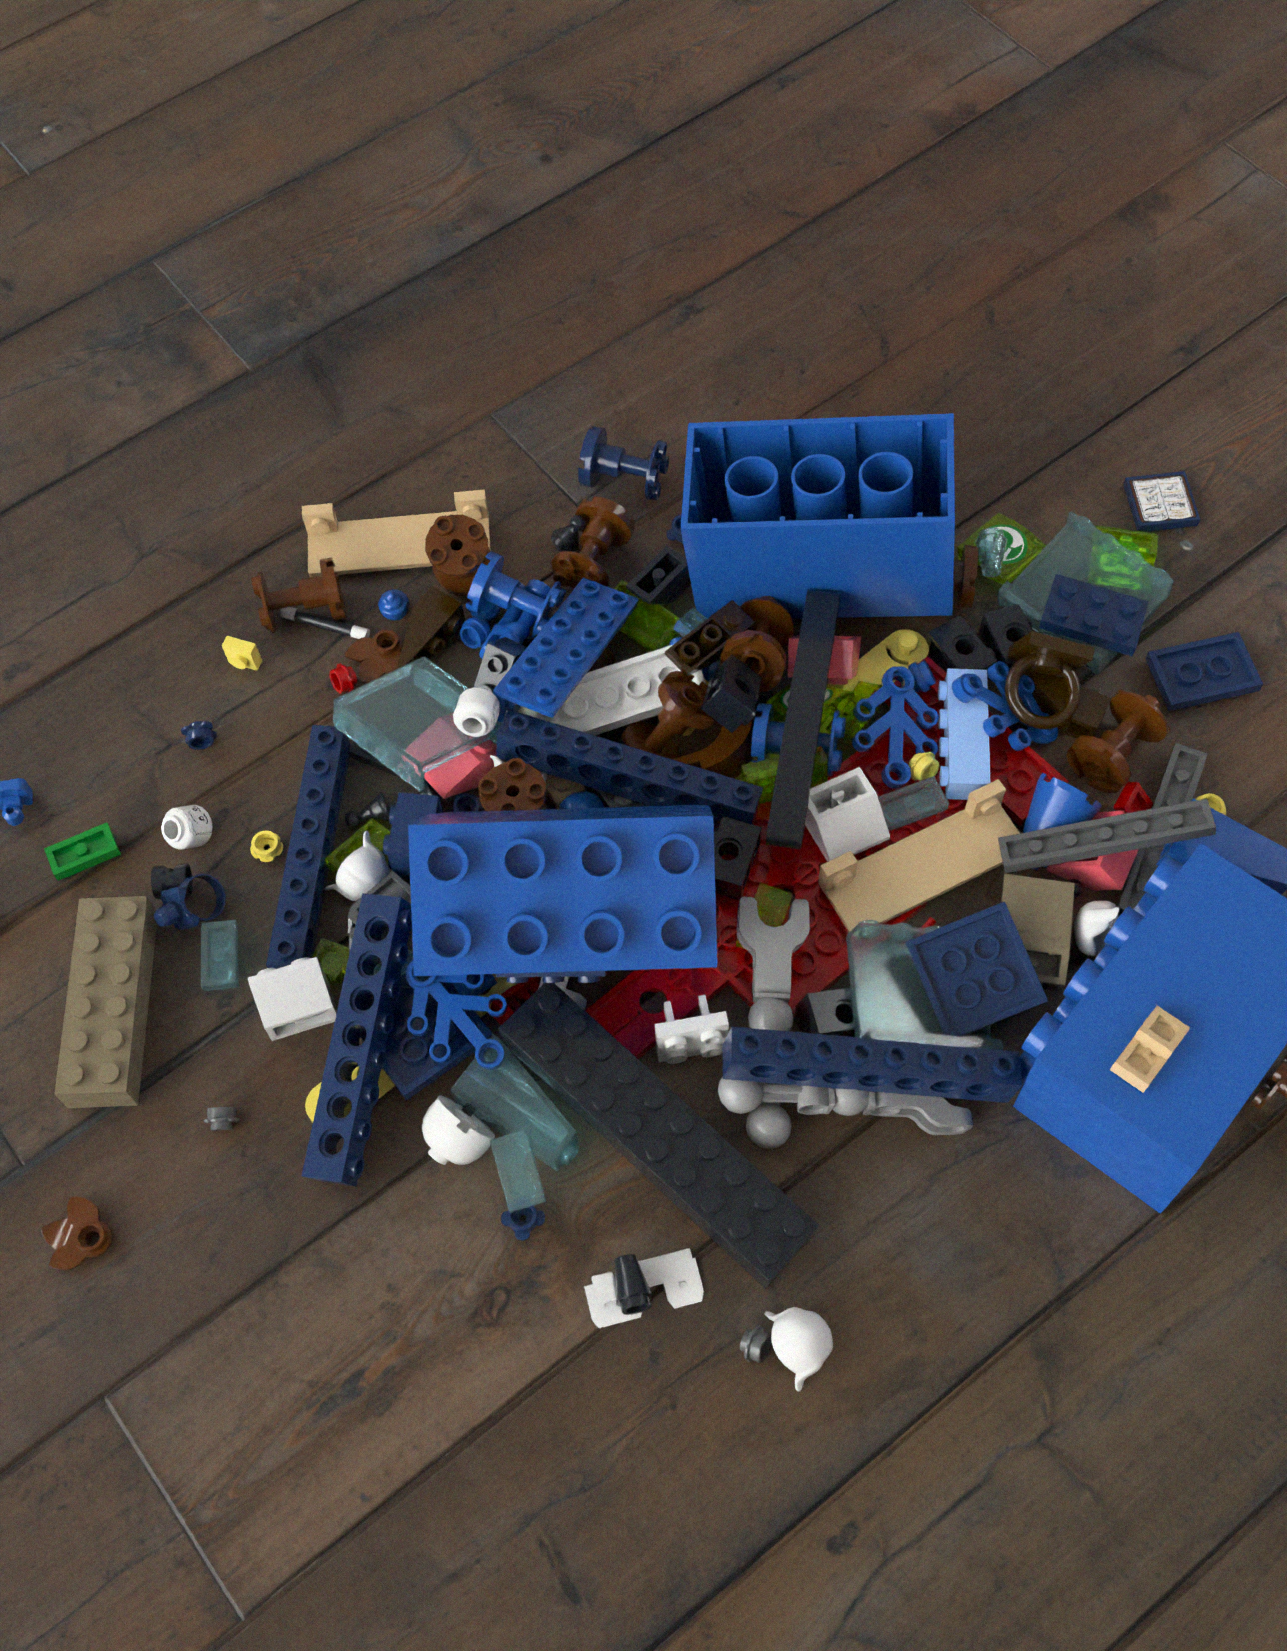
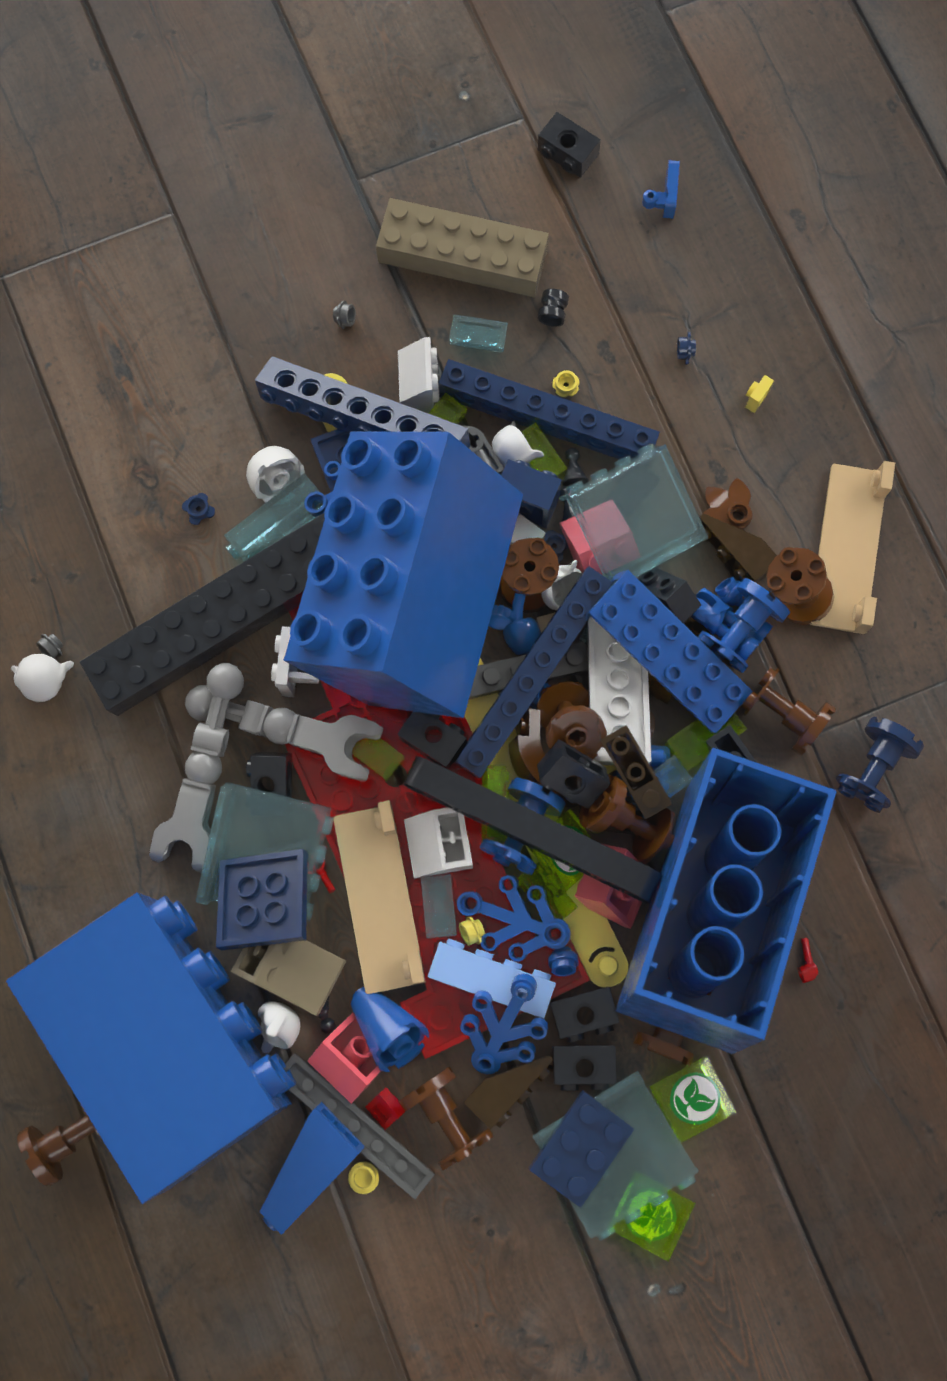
camera: 105 degrees right, 15 degrees up
(72, 1235) = (291, 205): reddish brown plate -> none
(82, 851) = (602, 246): green plate -> none
(175, 910) = (518, 297): dark blue piece -> none
(187, 827) = (596, 323): white head -> none
(311, 592) = (801, 467): reddish brown piece -> none
(324, 622) = (777, 469): black bar -> none
(343, 678) = (712, 472): red plate -> none
(394, 604) = (779, 529): blue plate -> none
(476, 712) = (614, 554): white head -> none
(518, 1171) = (224, 506): clear light blue plate -> none
(567, 537) = (811, 694): black piece -> none
(631, 1286) = (119, 569): black cone -> none
(663, 1269) = (119, 563): white piece -> none
(871, 1065) = (204, 783): dark blue brick -> none
(991, 551) = (681, 1079): clear light blue cone -> none
(1050, 657) = (535, 1079): dark brown tile -> none
(1107, 835) = (341, 1057): dark grey plate -> none
(1150, 1049) = (109, 983): tan slope -> none
(1161, 501) = (709, 1285): tile -> none
(1203, 671) = (503, 1238): dark blue plate -> none

